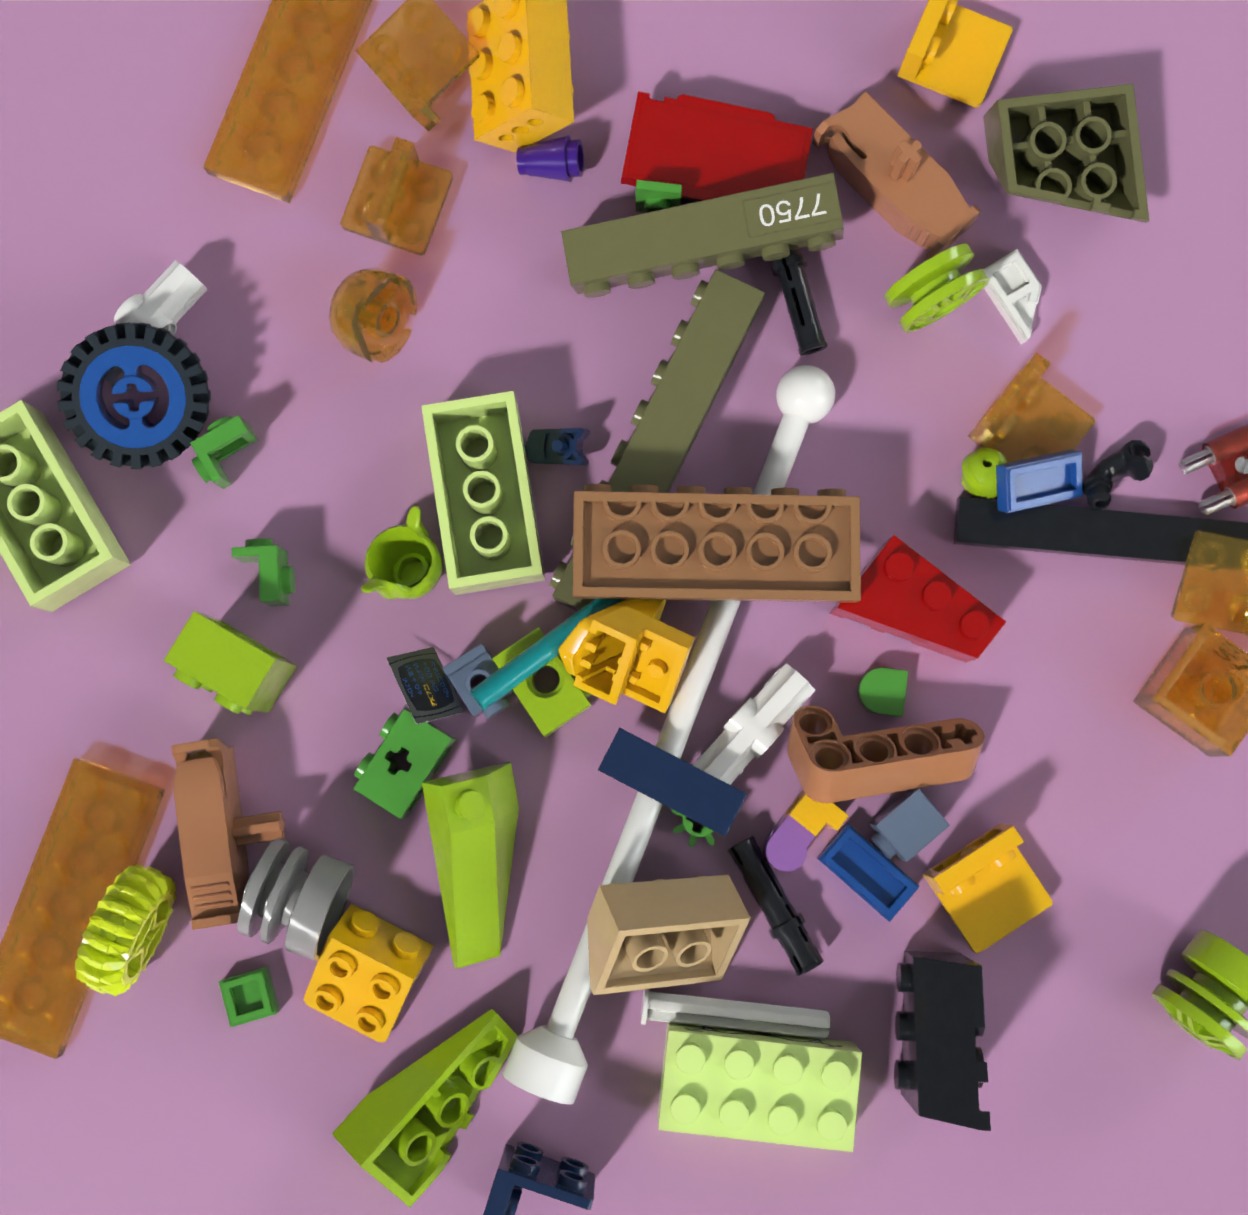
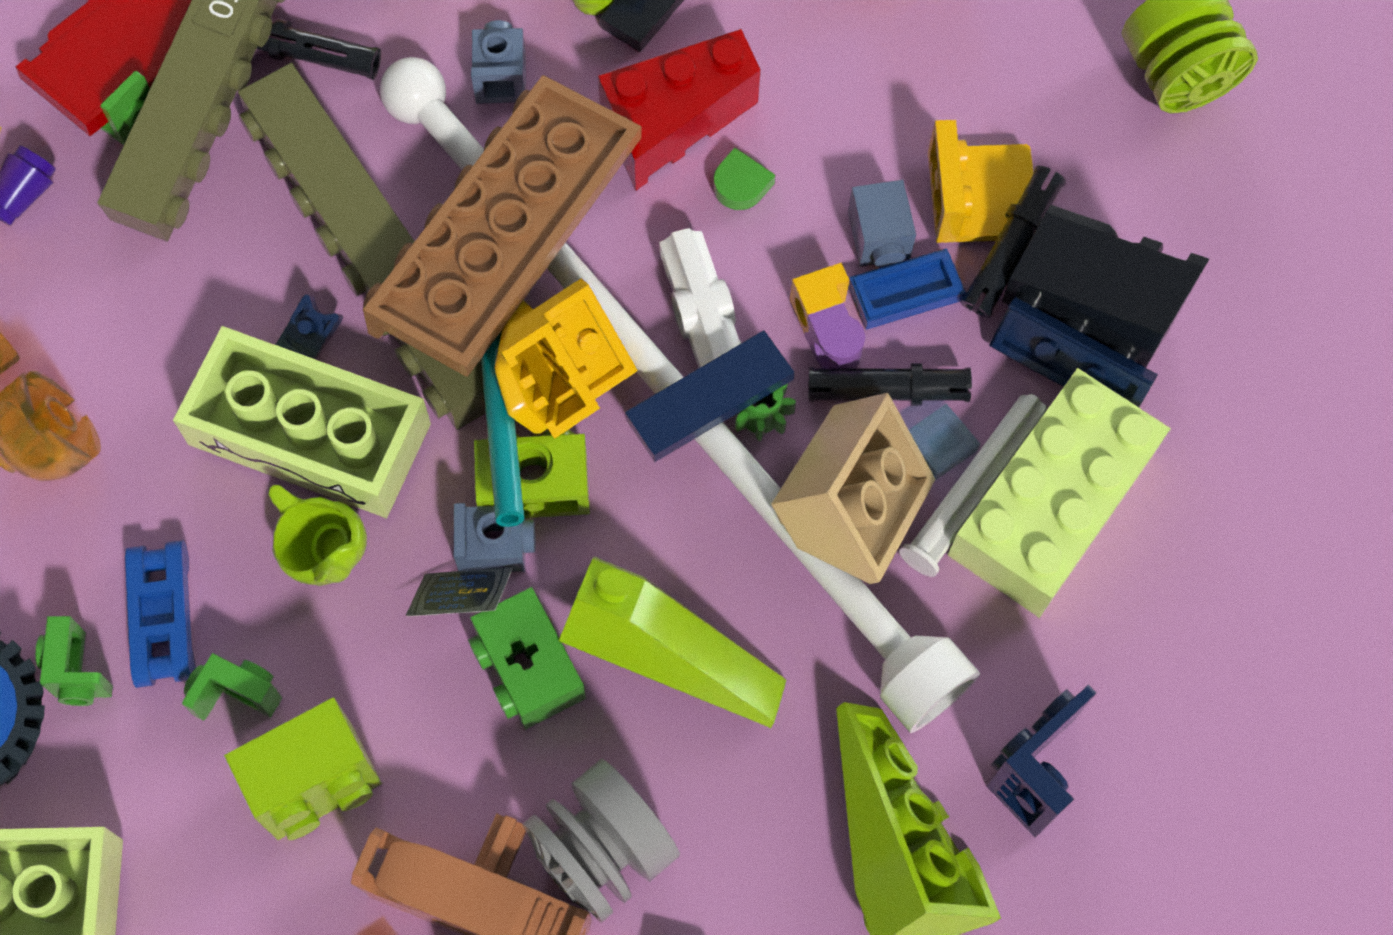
camera: 65 degrees left, 15 degrees down
(294, 483) = (159, 613): none -> blue plate
(366, 973) = (729, 826): yellow bracket -> none
(754, 968) = (943, 440): none -> clear light blue tile
(859, 455) = (498, 63): none -> sand blue brick
(878, 761) = (802, 212): nougat beam -> none
(879, 1037) = (1059, 350): none -> dark blue tile
(953, 939) = (1012, 241): none -> black pin

